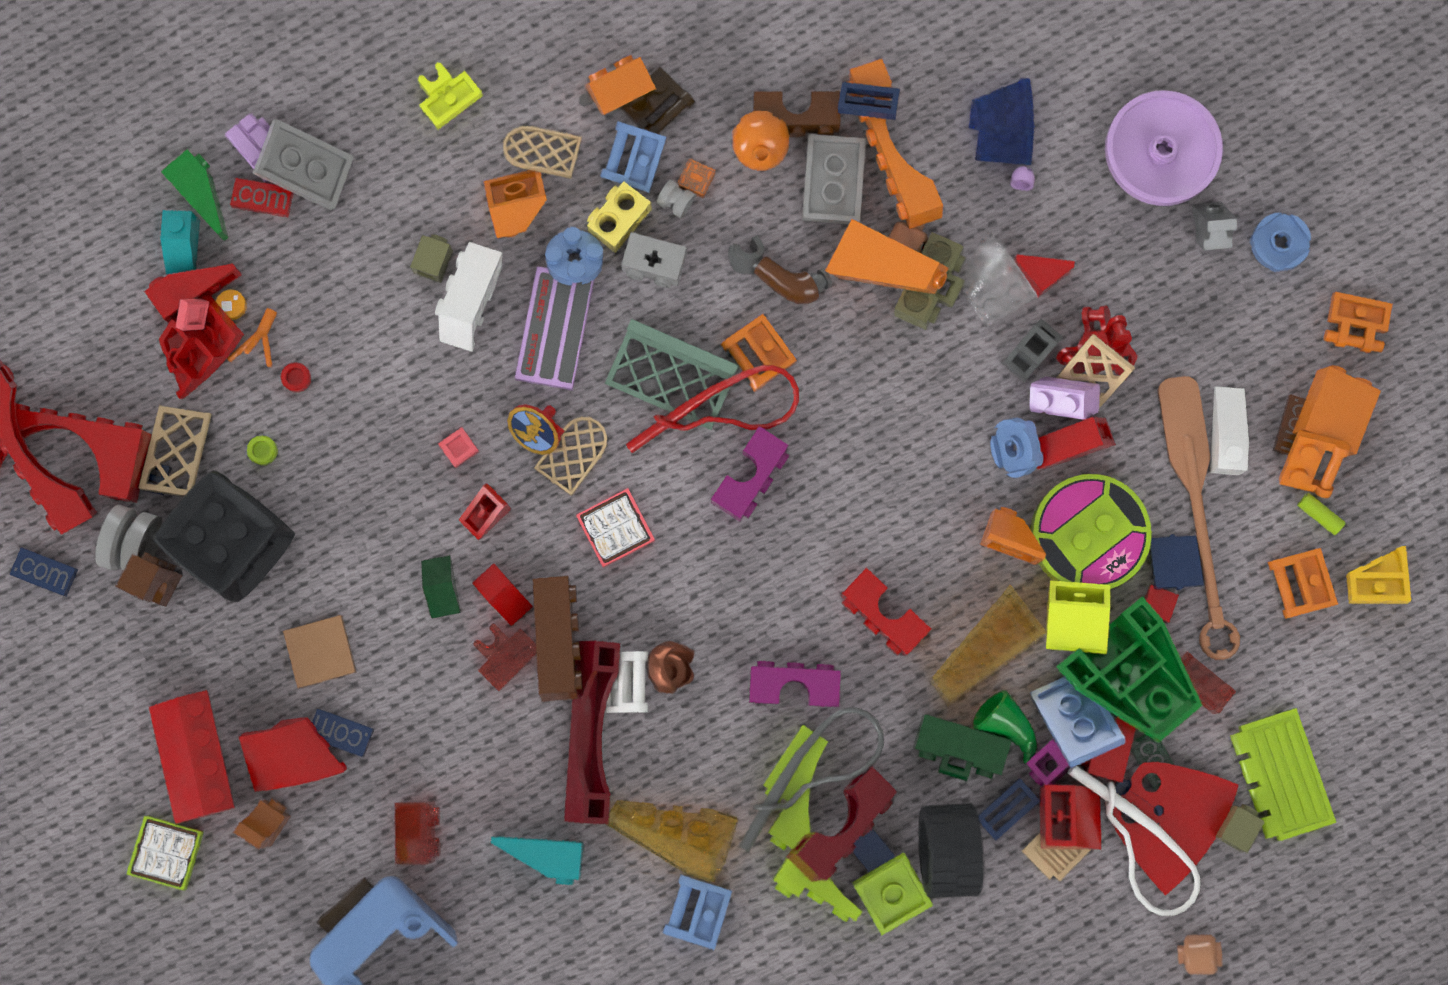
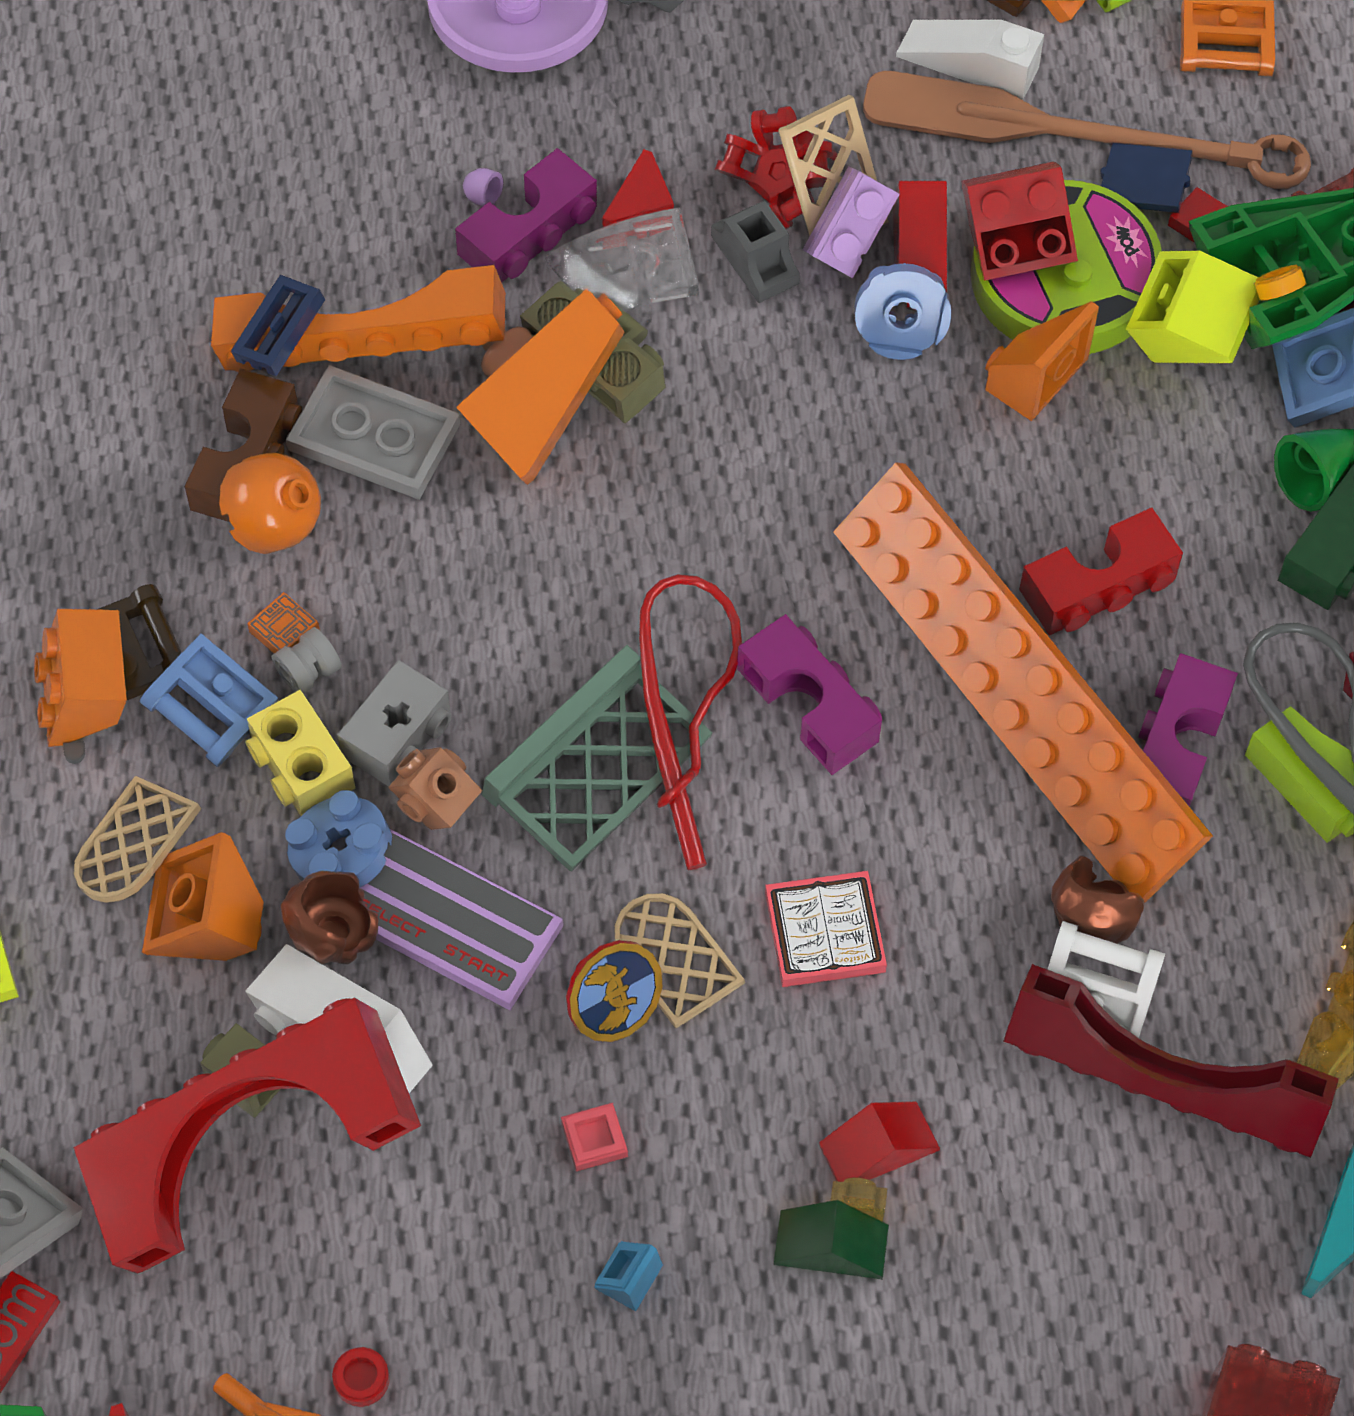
camera: 70 degrees left, 20 degrees down
(390, 490) = (629, 1273): none -> dark azure slope
(425, 304) = (140, 1163): none -> red arch
(463, 592) = (861, 1195): none -> clear yellow plate
(484, 512) = (725, 1119): red slope -> none
(505, 656) = (990, 1169): clear red plate -> none
(520, 268) = (329, 918): none -> copper hair
(555, 638) = (992, 1062): reddish brown brick -> none
(620, 294) = (434, 787): none -> nougat brick
(765, 345) = (603, 609): orange plate -> none
(794, 287) = (523, 540): piece -> none
(794, 585) = (1022, 684): none -> orange plate
(984, 206) = (560, 198): none -> magenta arch
(992, 644) = (1202, 444): clear yellow wedge -> none
(1005, 124) = (386, 172): clear blue slope -> none
(1099, 495) = (1020, 220): none -> red slope
(1103, 661) = (1280, 282): none -> light orange tile

